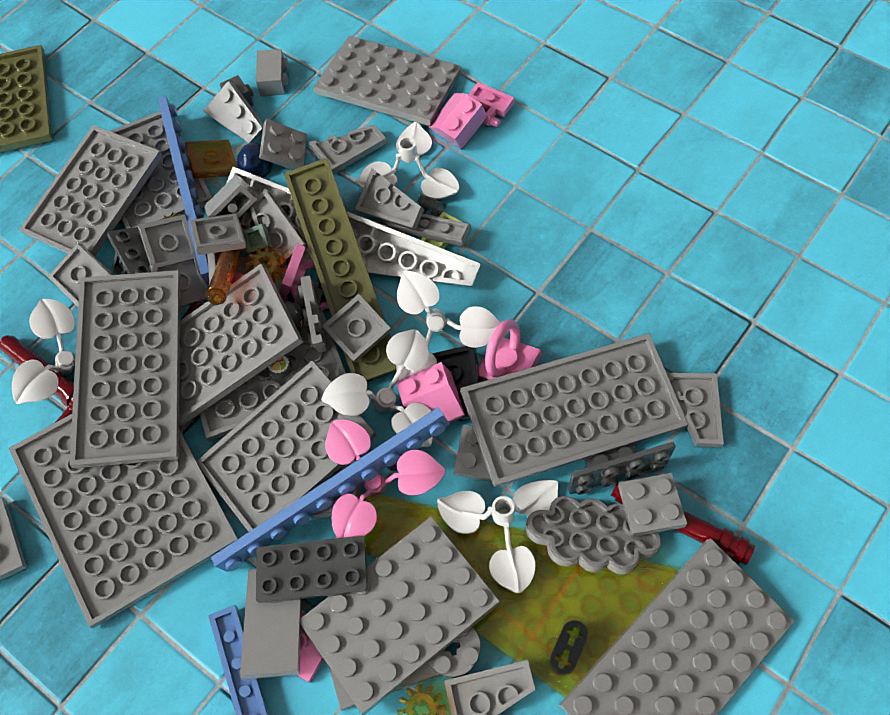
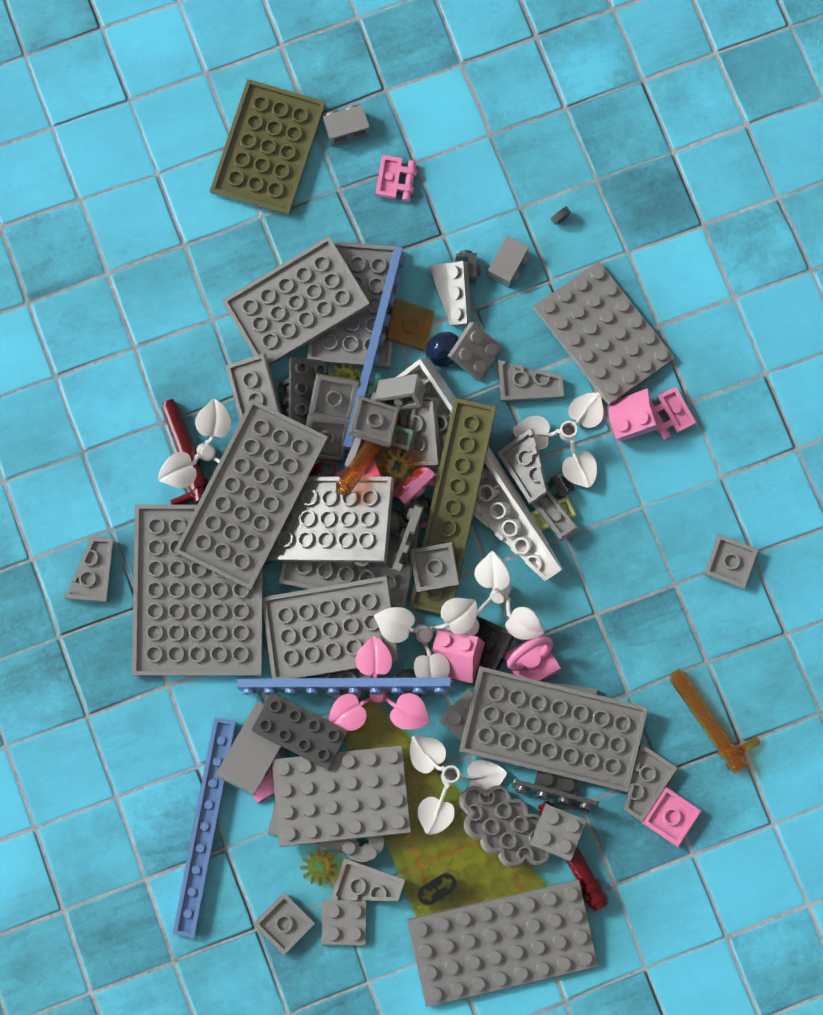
camera: 25 degrees right, 15 degrees up
(69, 52) = (346, 124): none -> light grey brick
(129, 69) = (389, 176): none -> bright pink plate
(295, 22) = (560, 215): none -> dark grey tile
(625, 181) = (731, 561): none -> light grey plate
(747, 330) = (726, 748): none -> clear orange cylinder
(747, 423) = (671, 817): none -> bright pink plate

